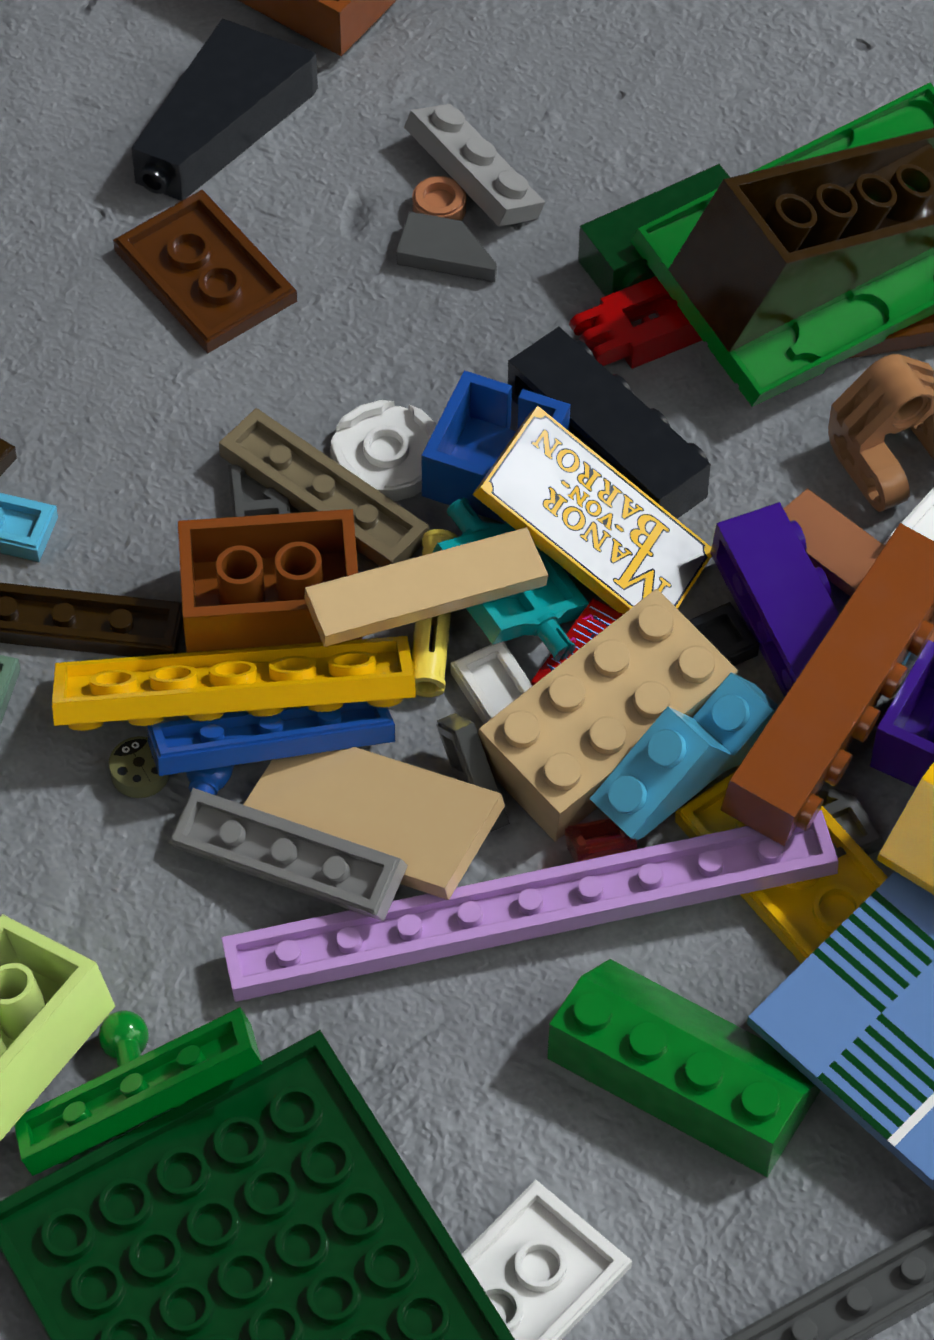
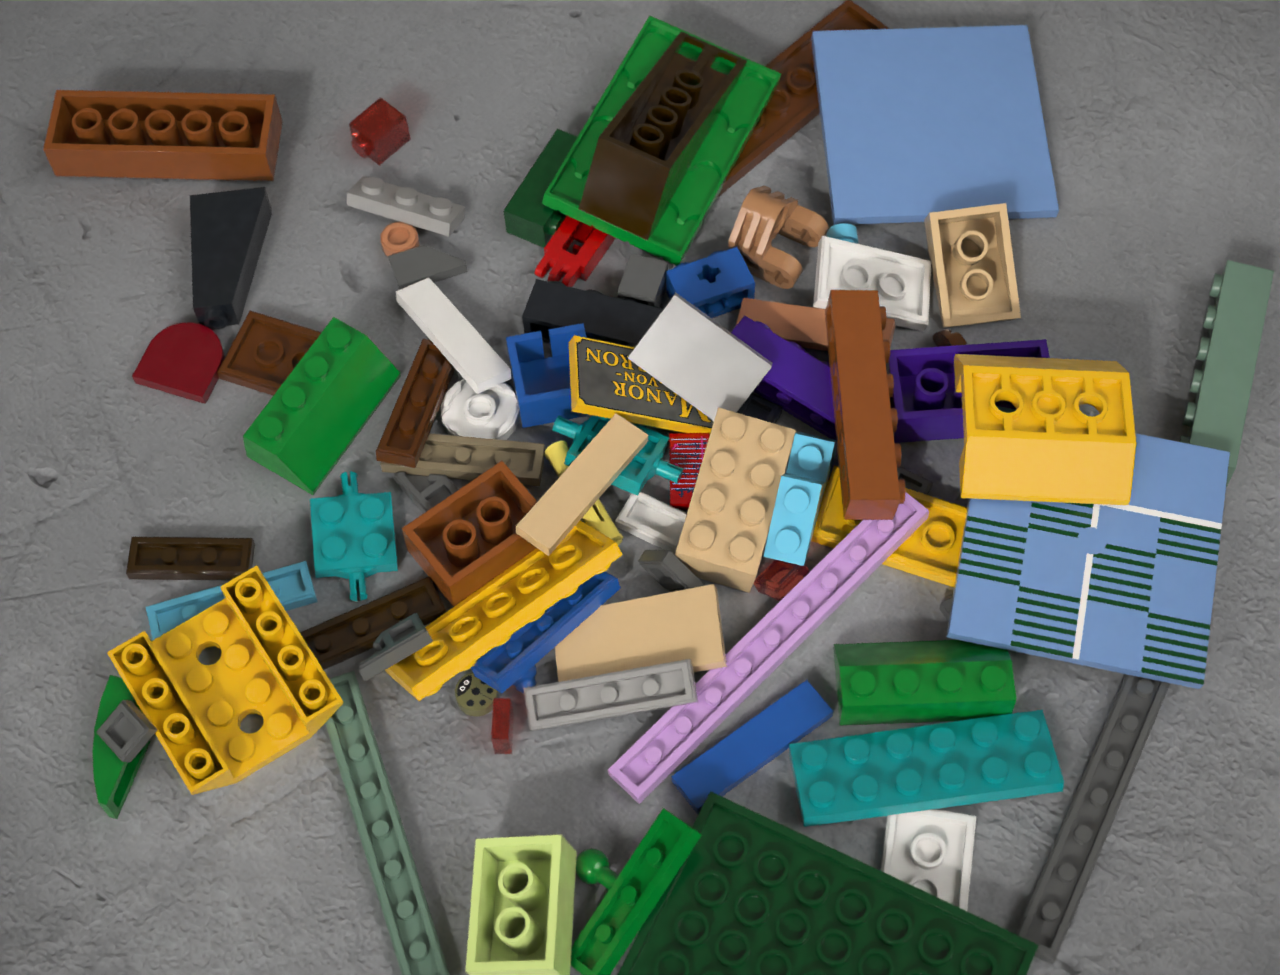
camera: 30 degrees left, 5 degrees up
(81, 655) = (395, 645): none -> dark grey tile
(83, 207) = (182, 361): none -> dark red tile
(131, 508) = (353, 535): none -> teal plate
(138, 817) = (502, 726): none -> clear red tile
(199, 339) = (321, 406): none -> green slope
(315, 397) = (416, 407): none -> reddish brown tile
(414, 341) = (453, 335): none -> white tile
(424, 1015) = (752, 745): none -> blue tile
(505, 61) = (379, 131): none -> clear red brick
(610, 1166) = (925, 768): none -> teal plate
(678, 519) = (699, 358): none -> tile
(695, 403) = (644, 280): none -> dark grey brick
(773, 452) = (713, 283): none -> blue brick

